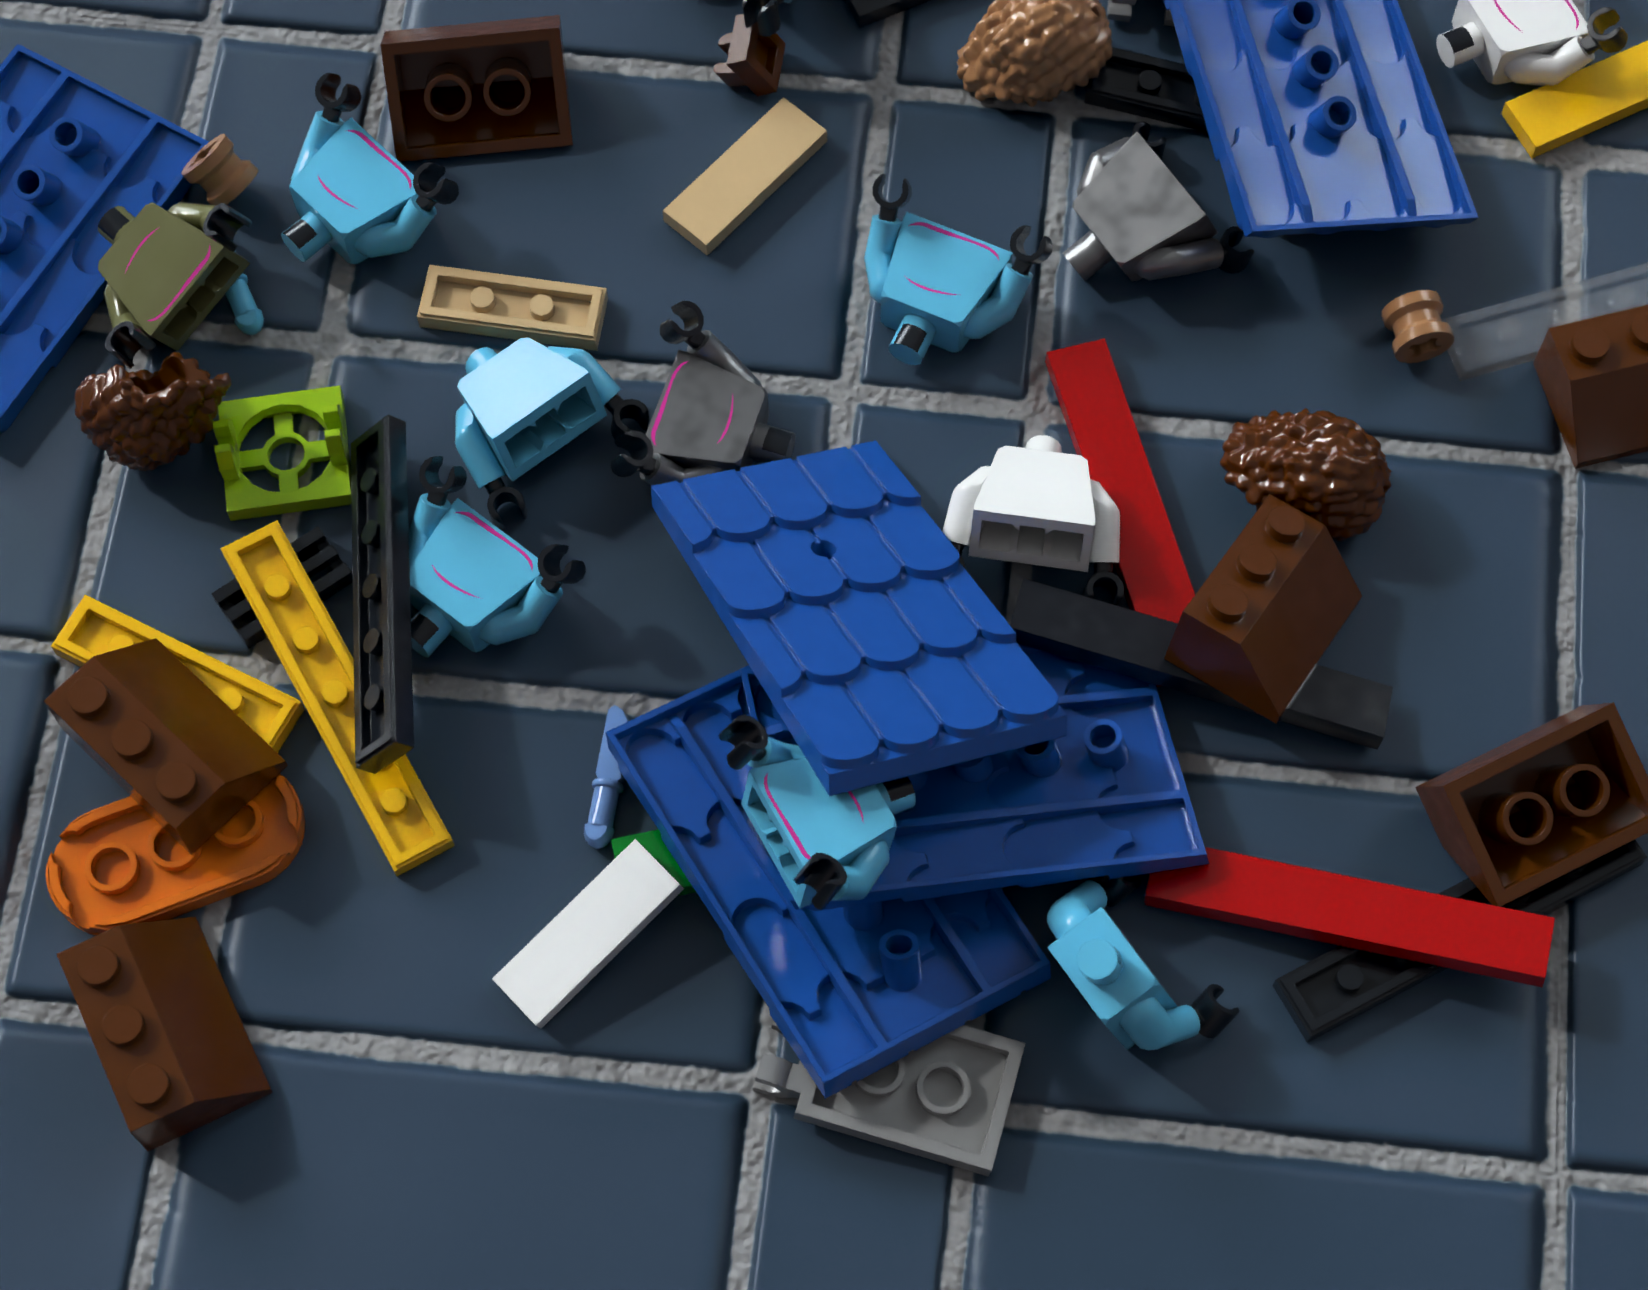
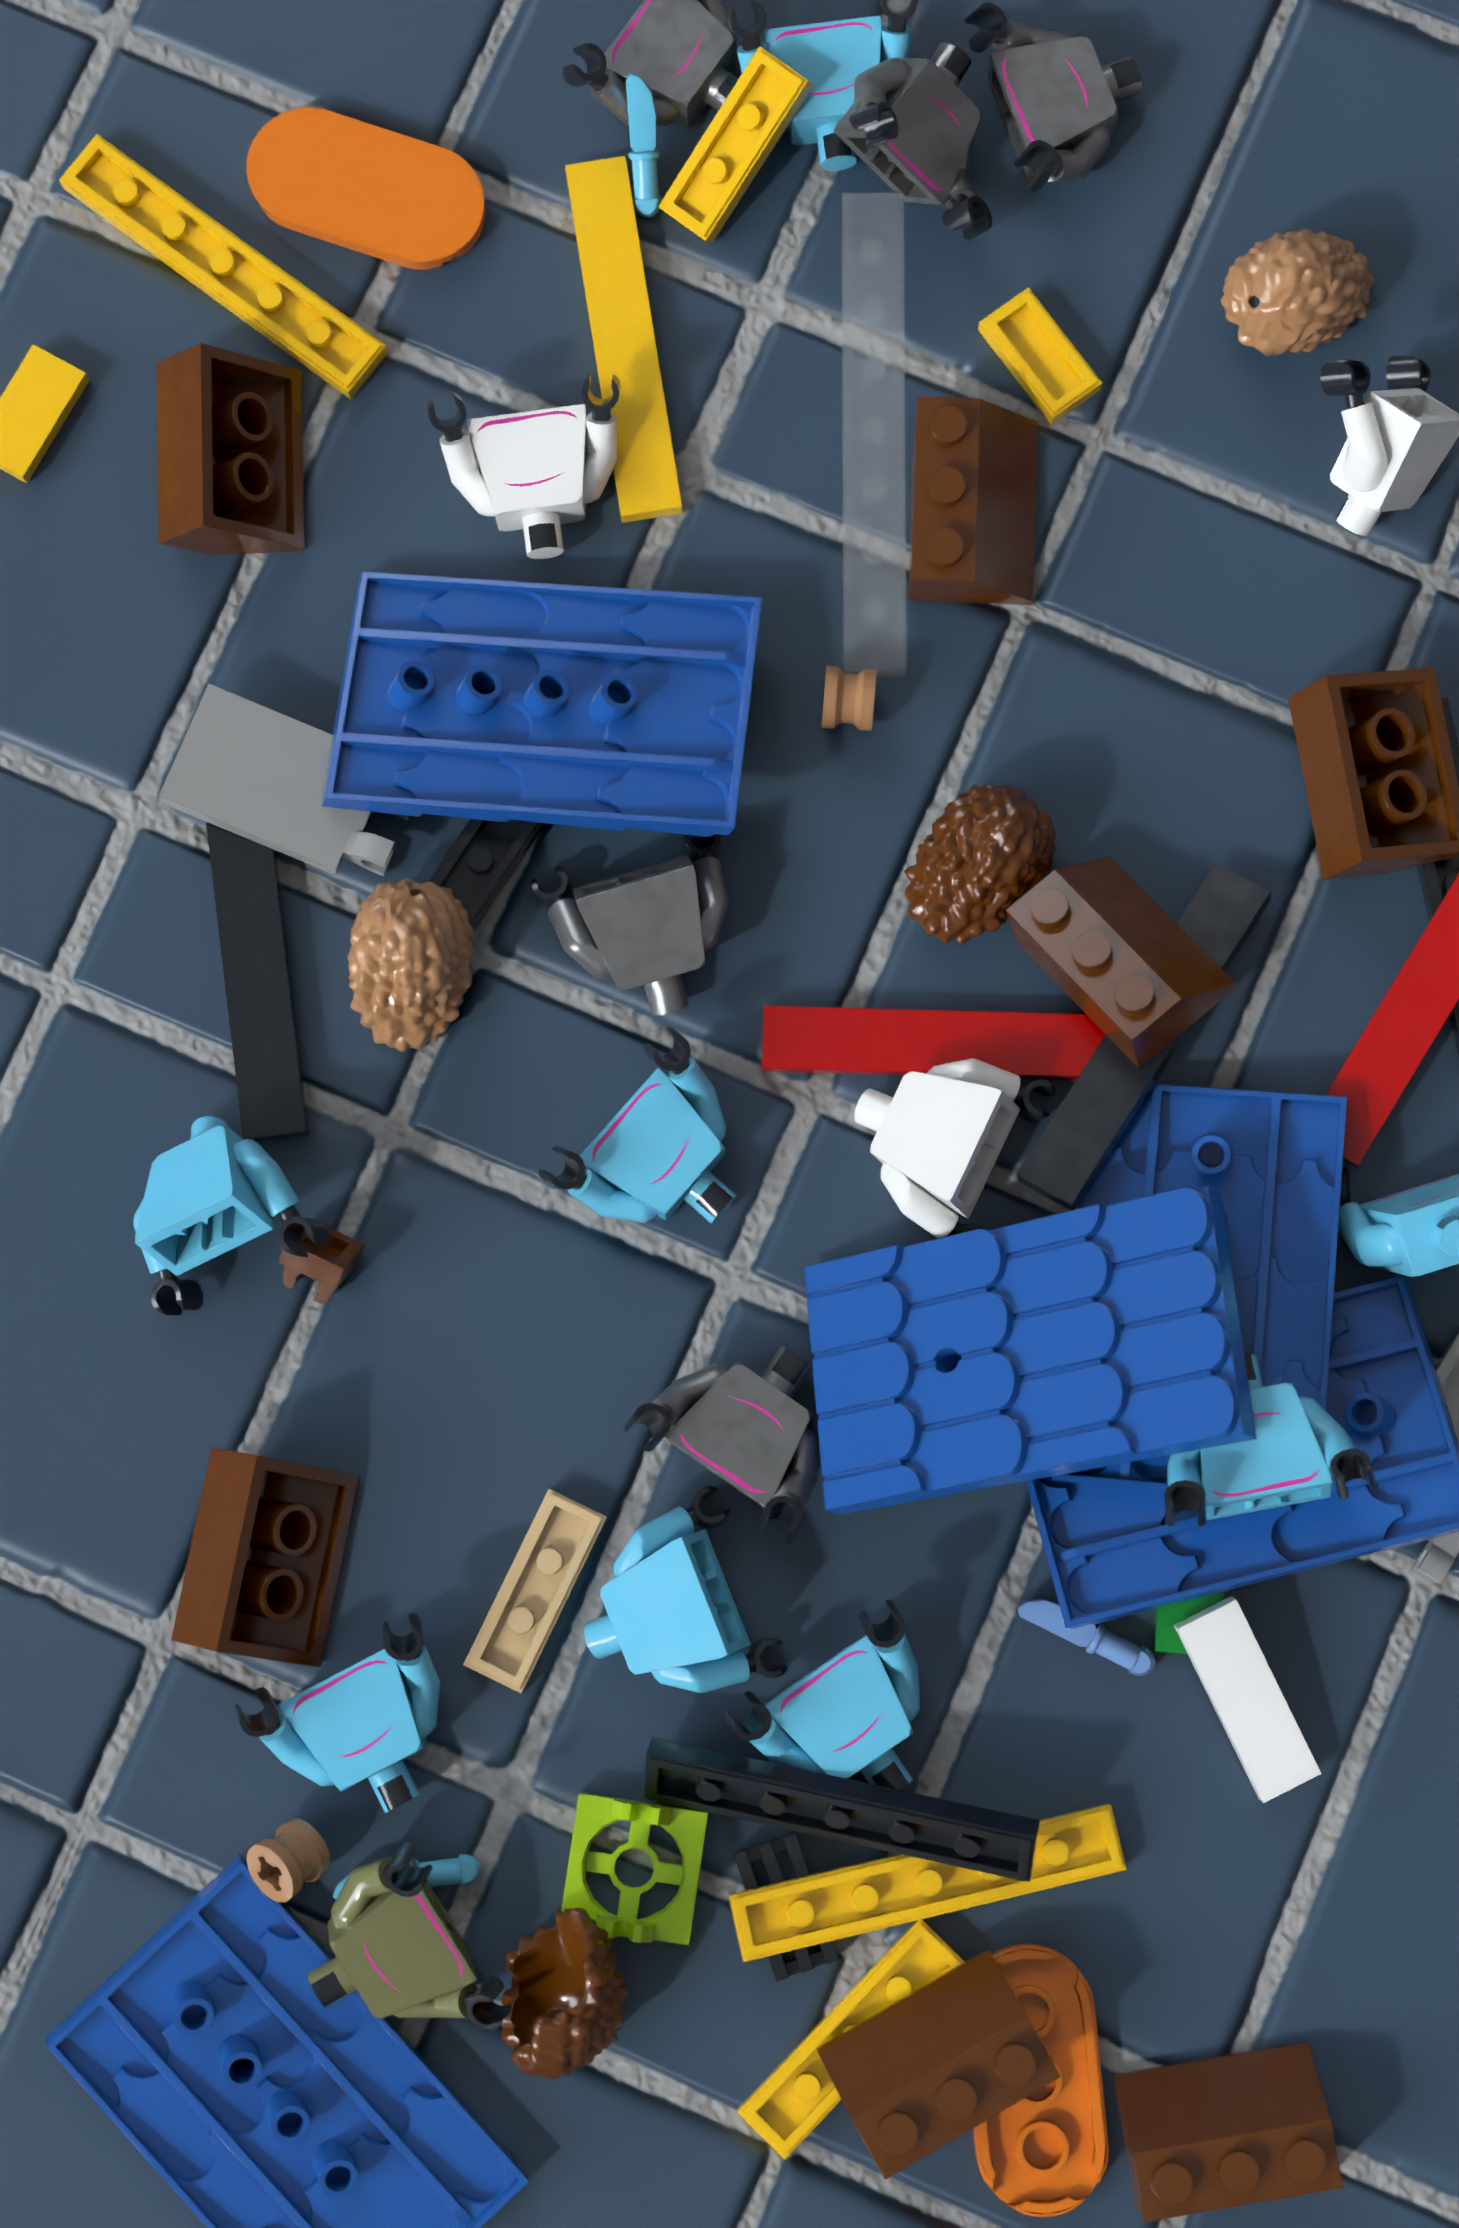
camera: 70 degrees left, 15 degrees up
(745, 176) = (456, 1306): tan tile -> none

